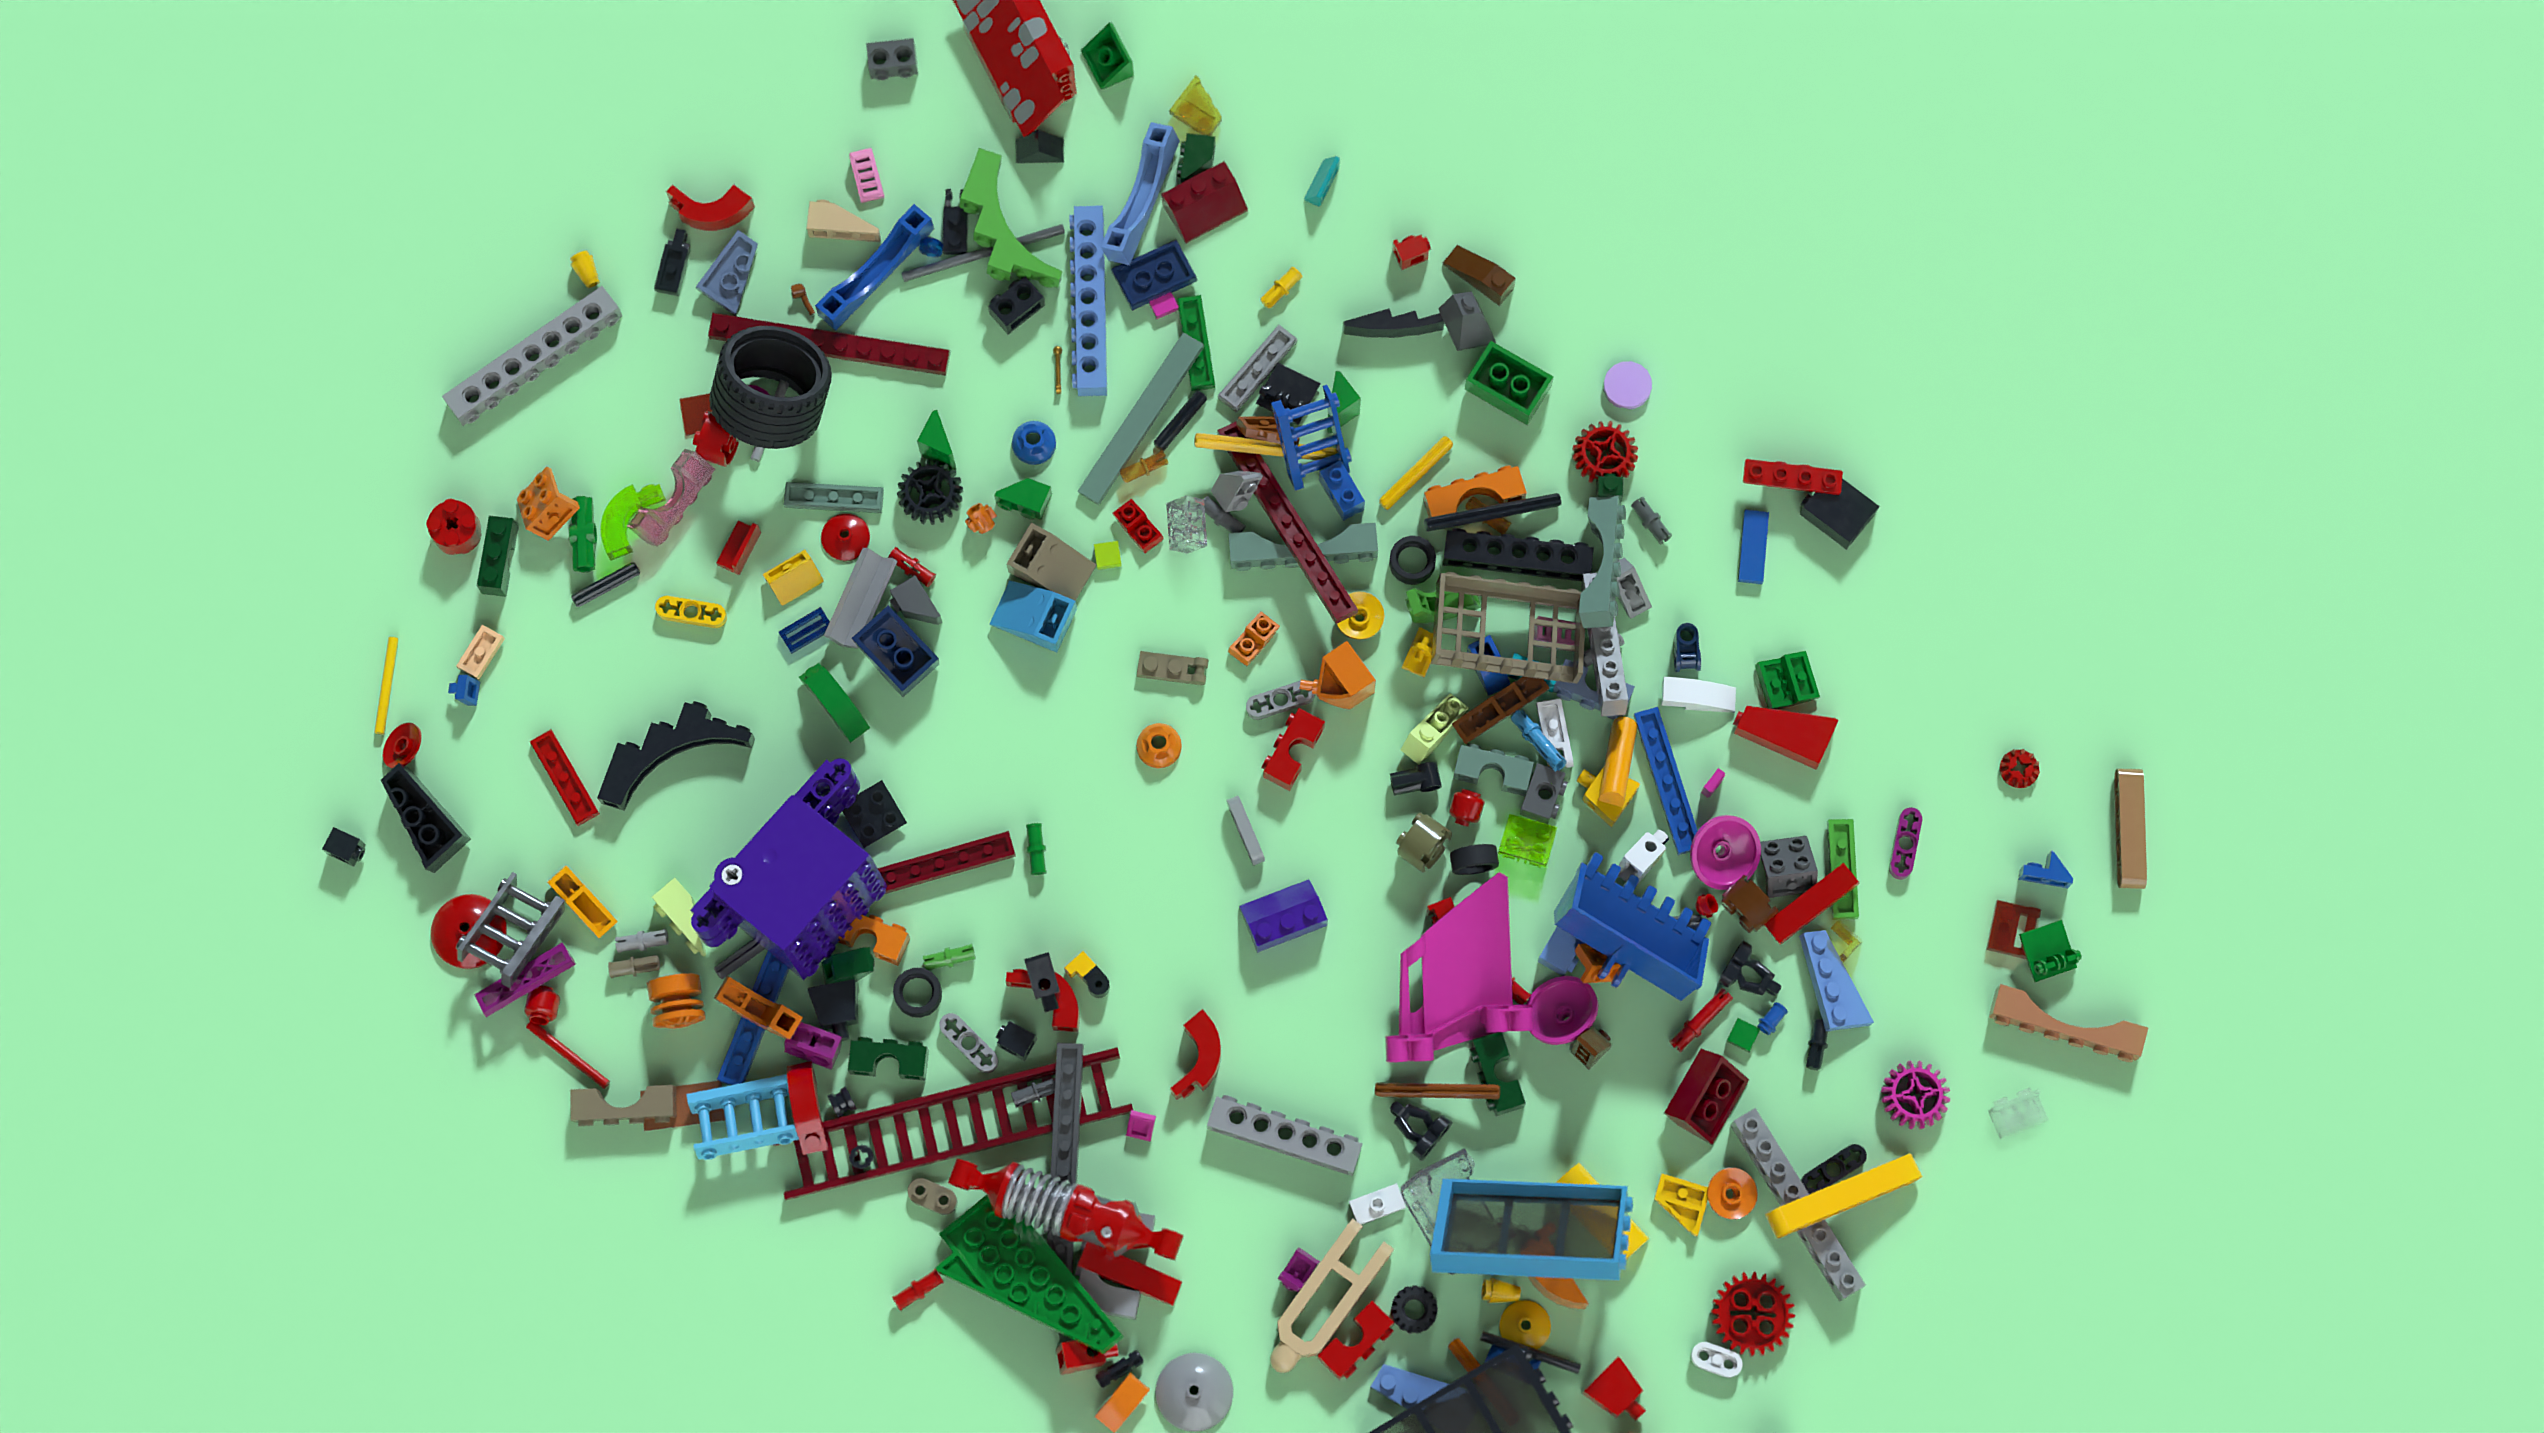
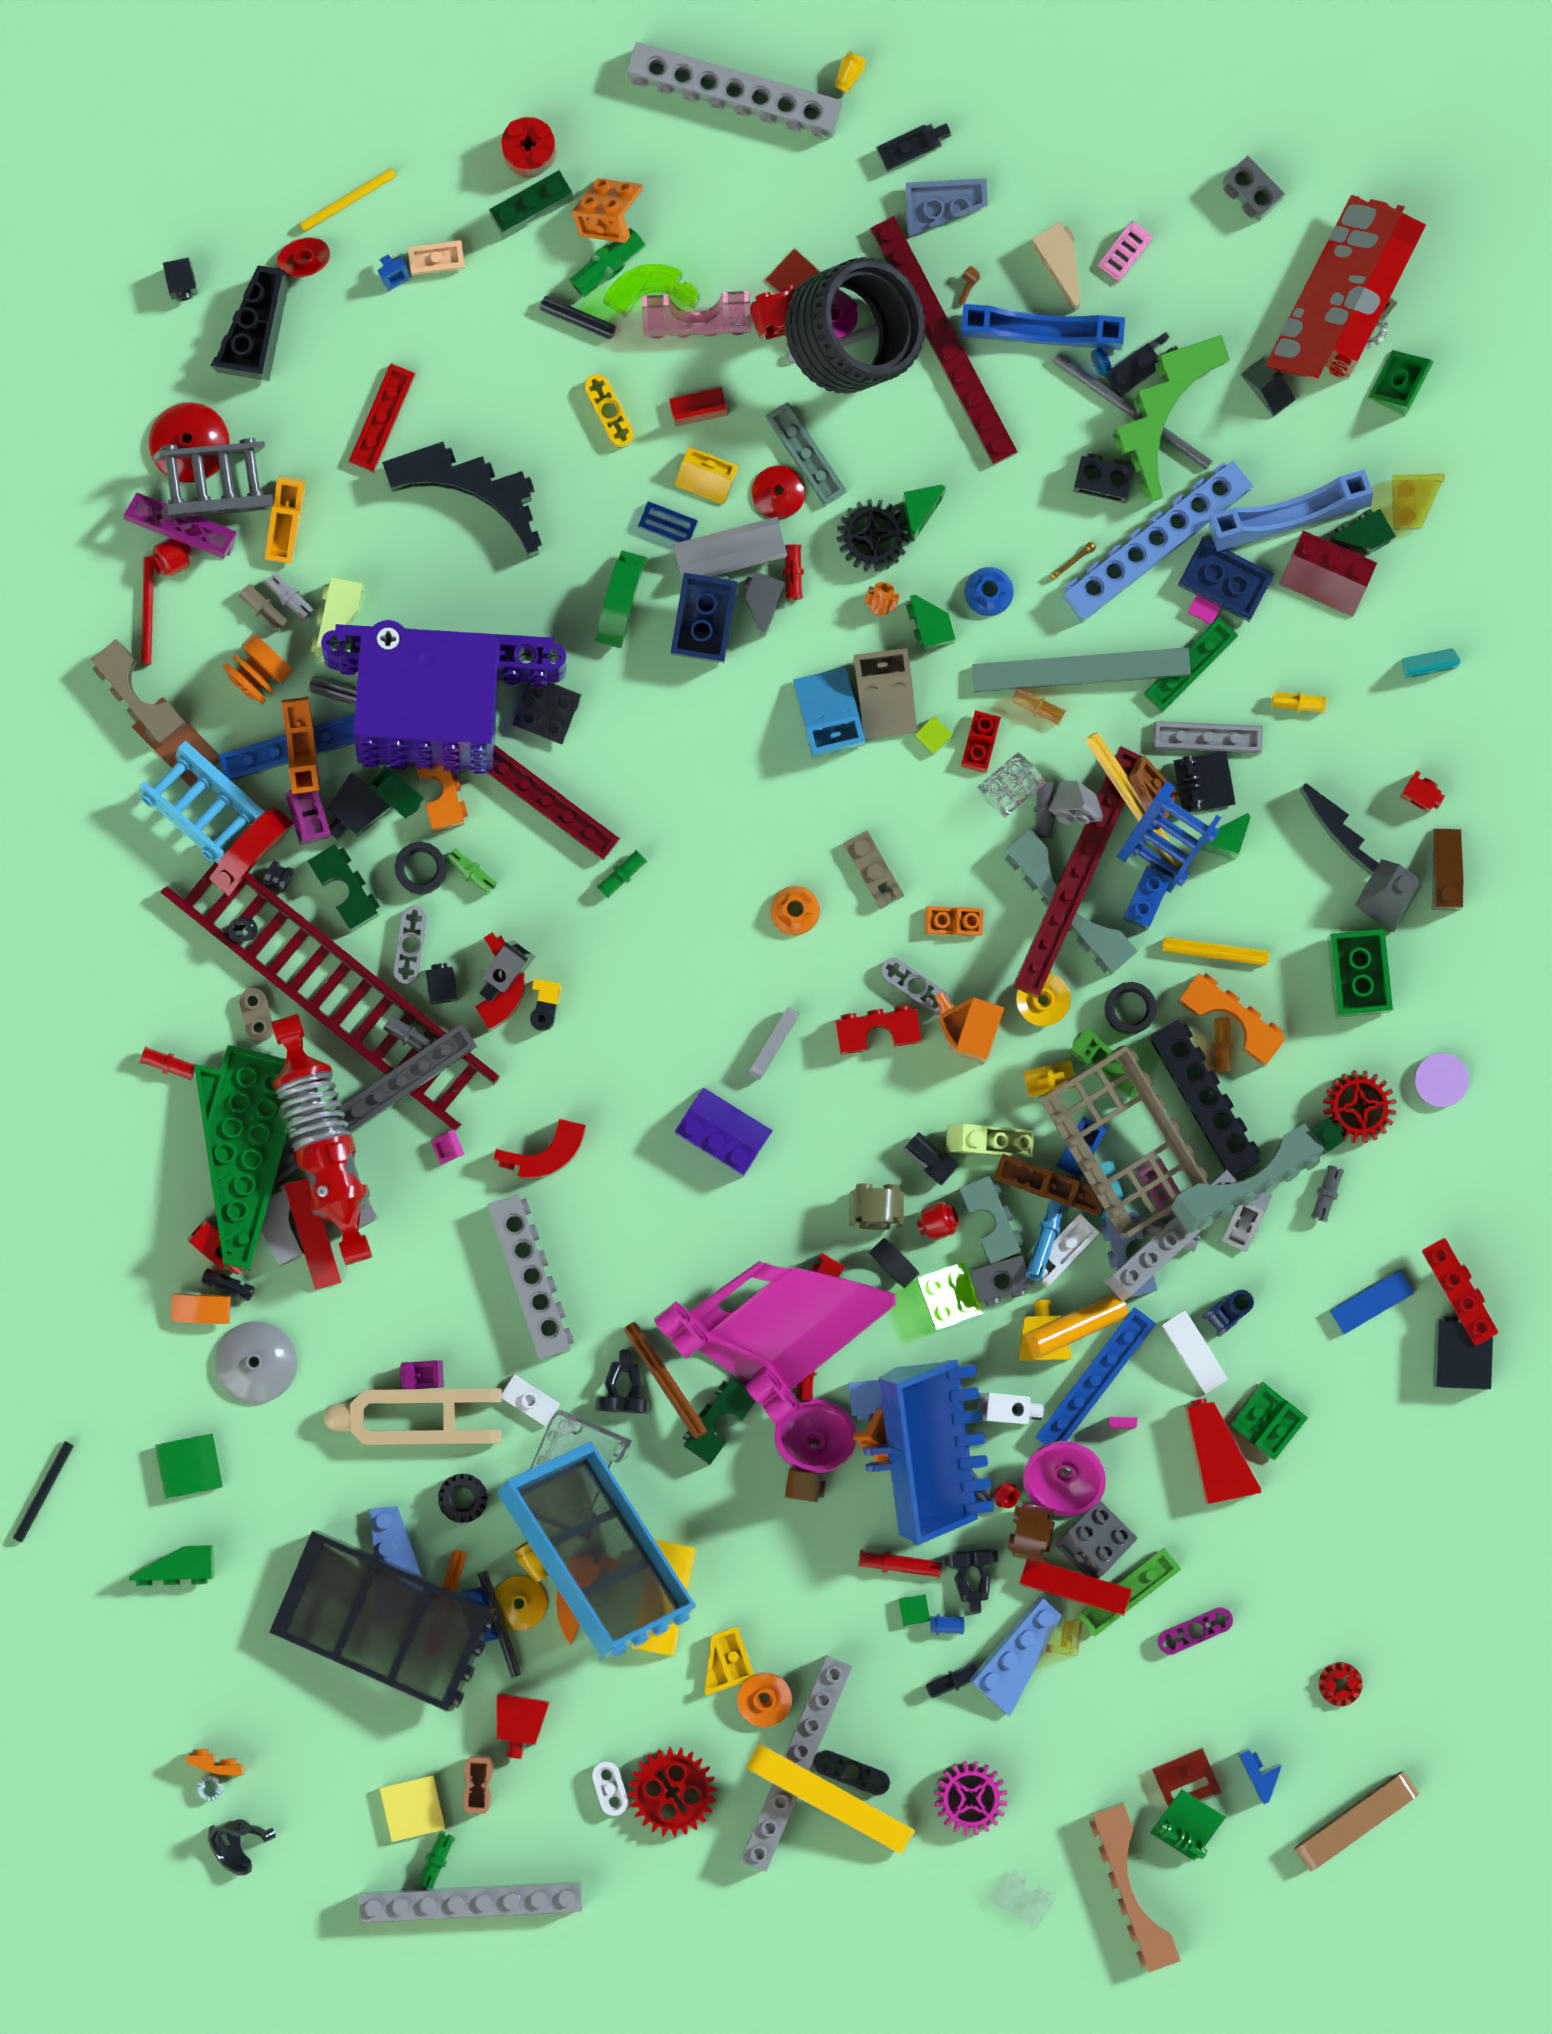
camera: 50 degrees right, 10 degrees up
(715, 215) = (991, 152): red arch -> none
(1180, 420) = (1106, 705): black axle -> none
(1374, 1326) = (374, 1467): red arch -> none
(1492, 512) = (1225, 1047): black axle -> none
(1706, 1096) = (834, 1616): dark red slope -> none

